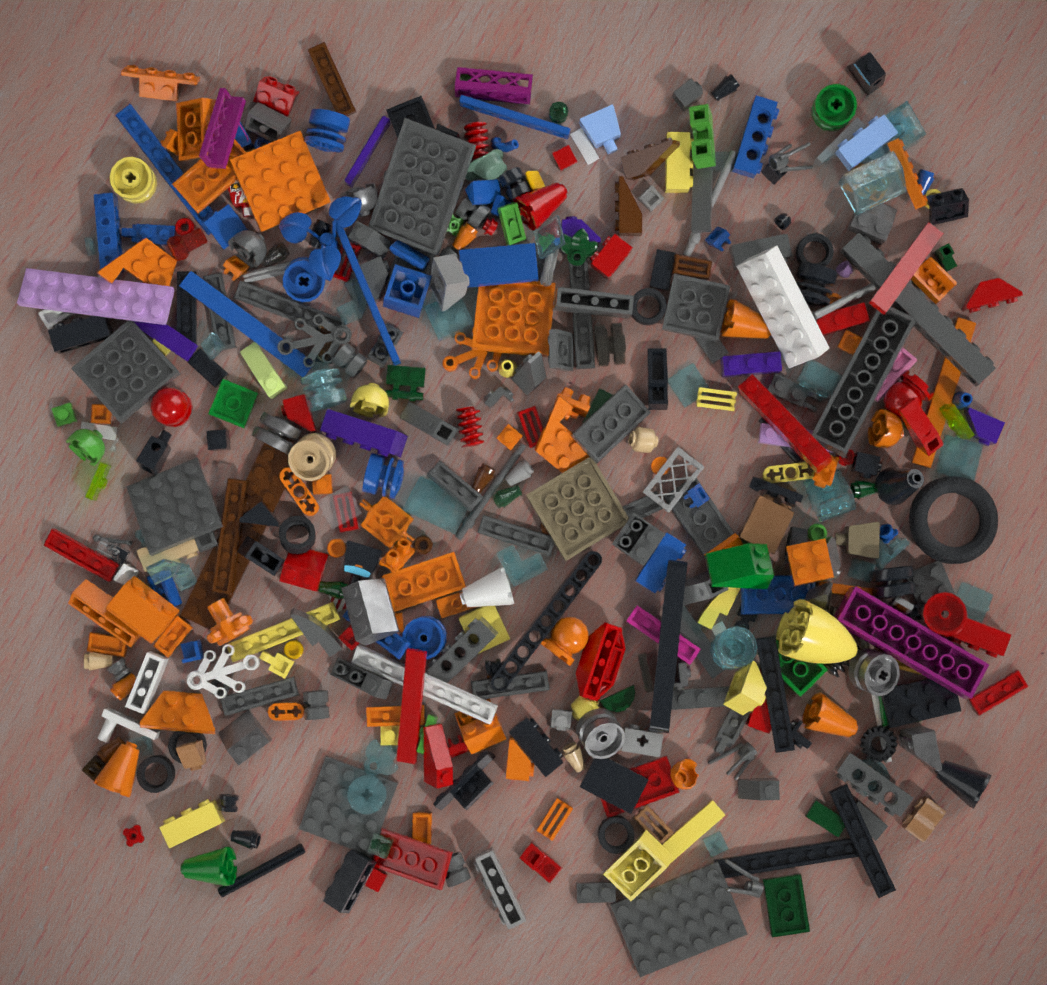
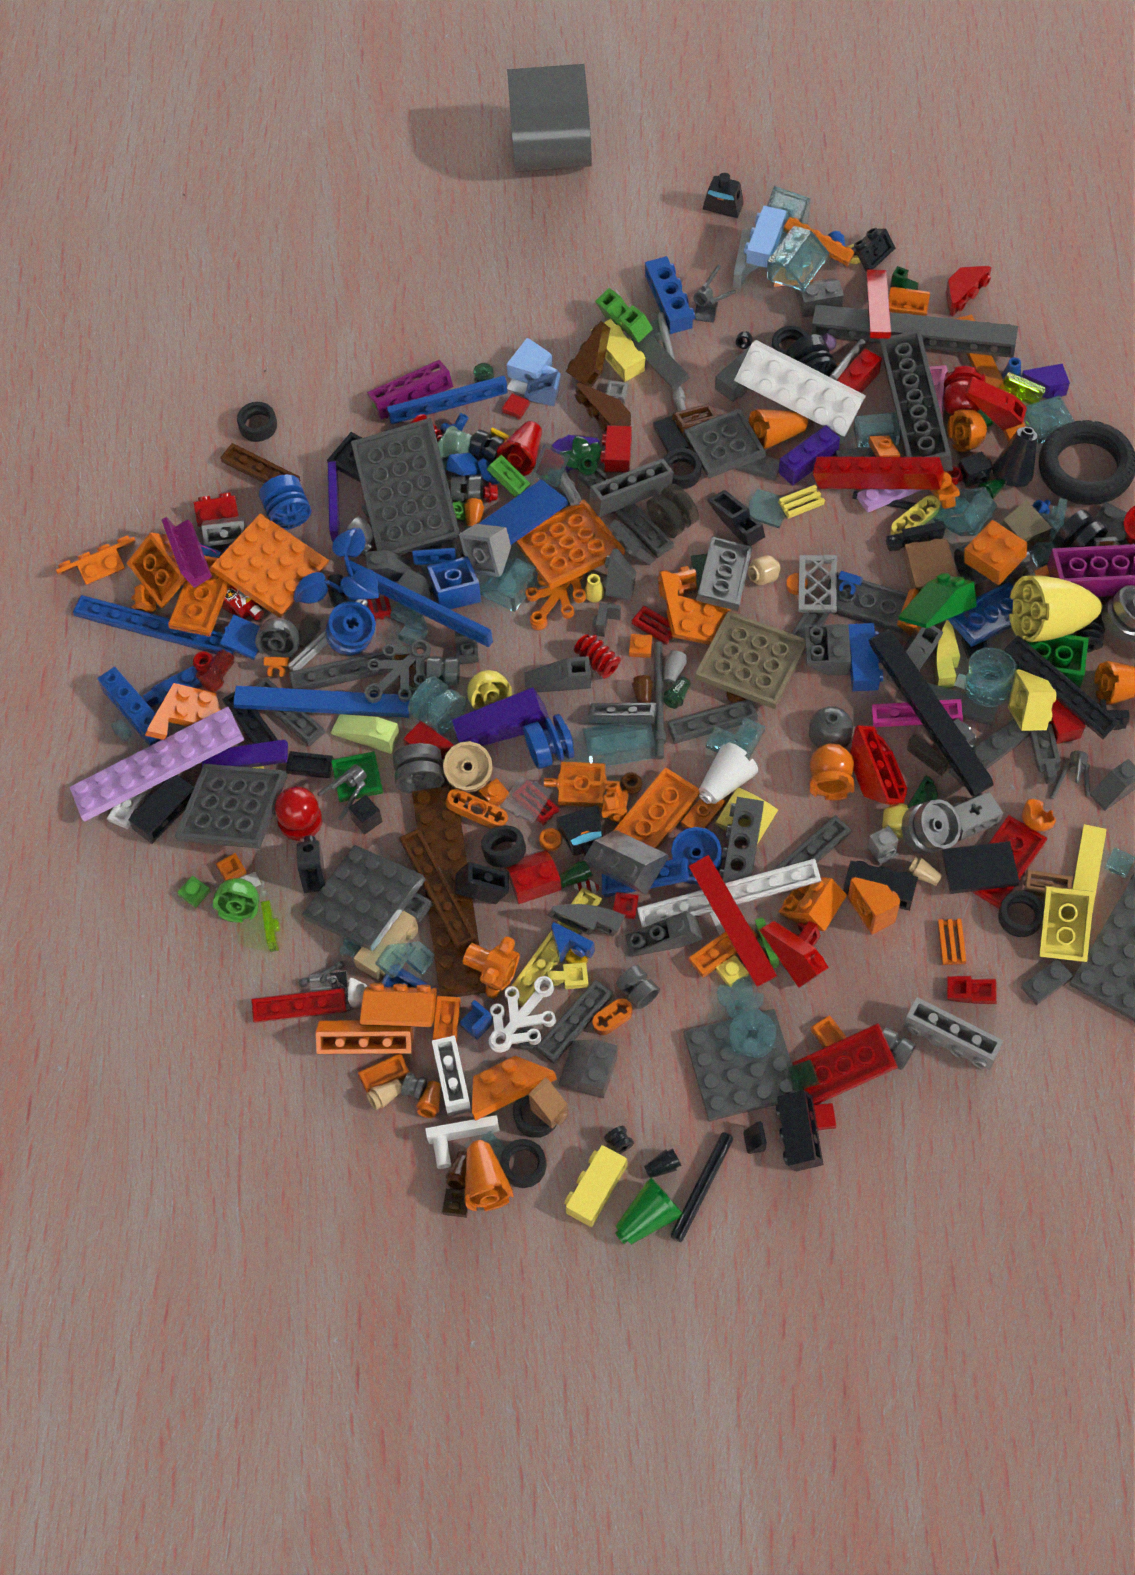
camera: 30 degrees left, 25 degrees down
(123, 174) = (127, 649): light yellow wheel -> none
(138, 835) = (545, 1248): red plate -> none
(212, 345) = (301, 739): clear light blue tile -> none
(226, 407) = (352, 778): none -> dark grey plant
(260, 515) = (457, 848): black slope -> none
(289, 636) = (567, 939): none -> blue slope
(318, 863) = (755, 1138): none -> black slope
(357, 18) = (250, 410): none -> black tyre
(405, 376) = (507, 655): dark green plate -> none
(469, 785) = (845, 962): black bracket -> none
(491, 666) = (784, 843): black wheel -> none
(553, 615) = (799, 718): black beam -> none
(593, 159) = (544, 389): none -> medium blue slope
(594, 602) = (830, 726): none -> dark grey cylinder
(688, 94) = (585, 298): dark grey brick -> none
(717, 238) = (700, 382): blue tile -> none
(725, 87) = (614, 275): black cone -> none
(807, 404) = (883, 446): none -> orange plate
(823, 107) = (717, 235): green wheel -> none
(849, 342) = (879, 391): orange plate -> none

